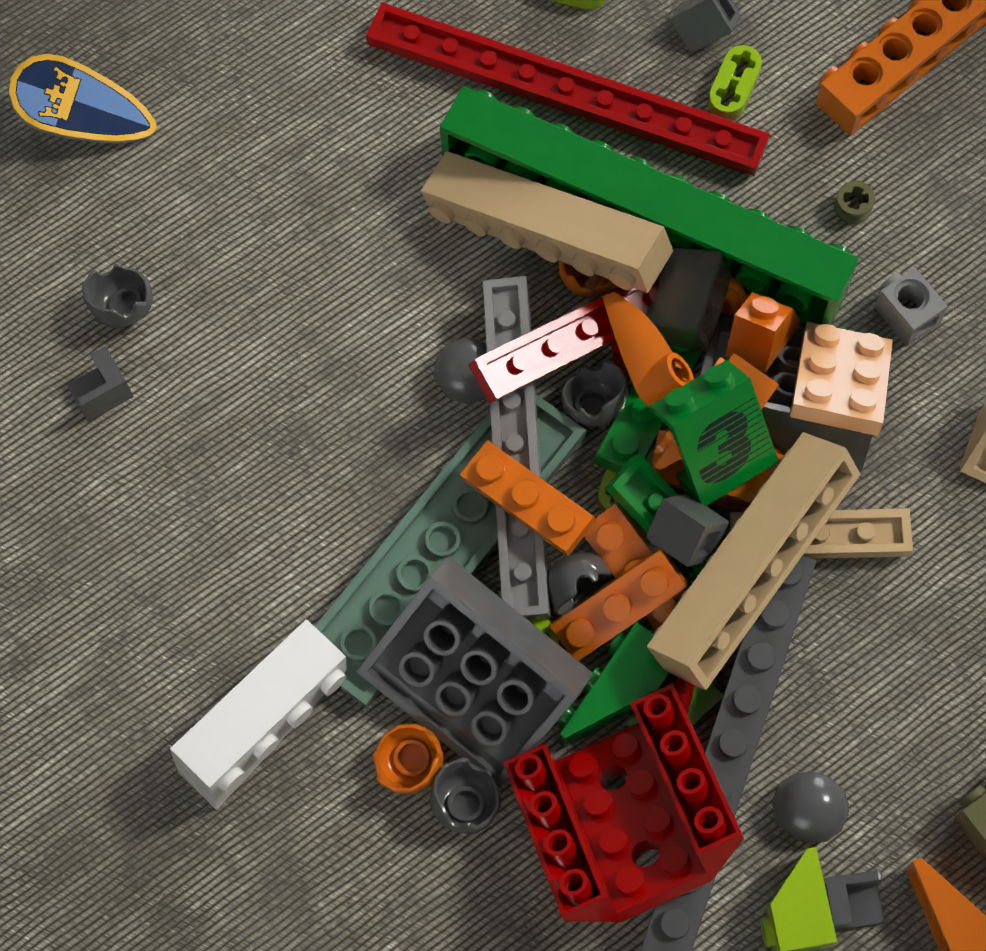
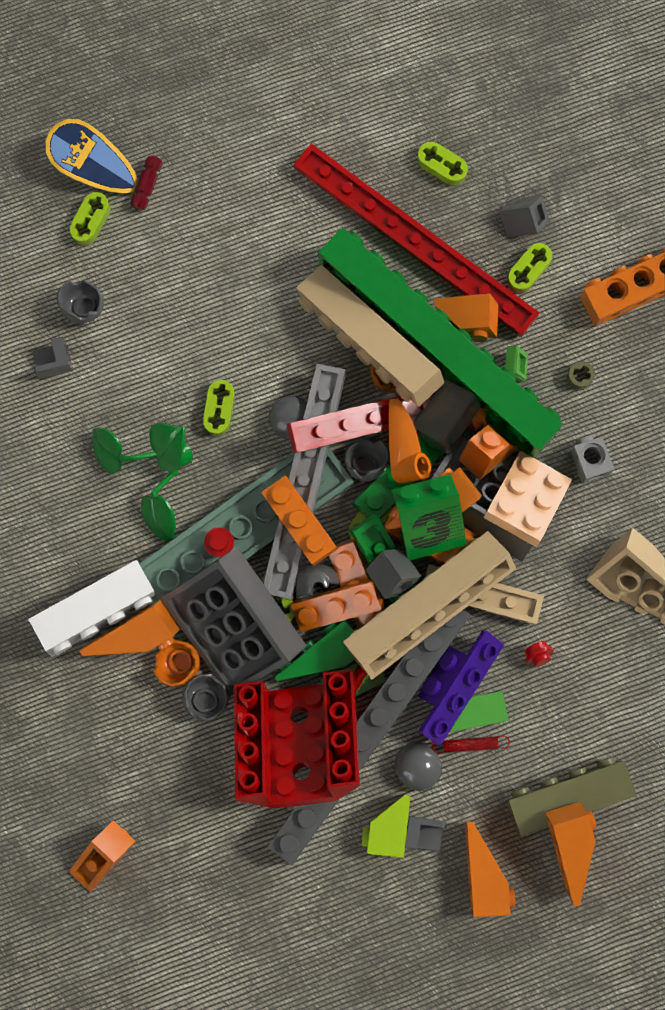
camera: 15 degrees right, 10 degrees up
(108, 187) = (84, 216): none -> lime beam
(166, 117) = (146, 183): none -> dark red axle
(307, 438) = (171, 454): none -> green plant
(338, 730) = (139, 633): none -> orange slope
(350, 387) = (212, 407): none -> lime beam
(416, 565) = (218, 542): none -> red plate
(682, 152) = (473, 314): none -> orange slope
(759, 198) = (517, 362): none -> bright green tile
(824, 668) = (454, 683): none -> dark purple bracket
(867, 703) = (482, 711): none -> bright green tile
(877, 751) = (472, 744): none -> red piece
(929, 592) = (538, 654): none -> red plate

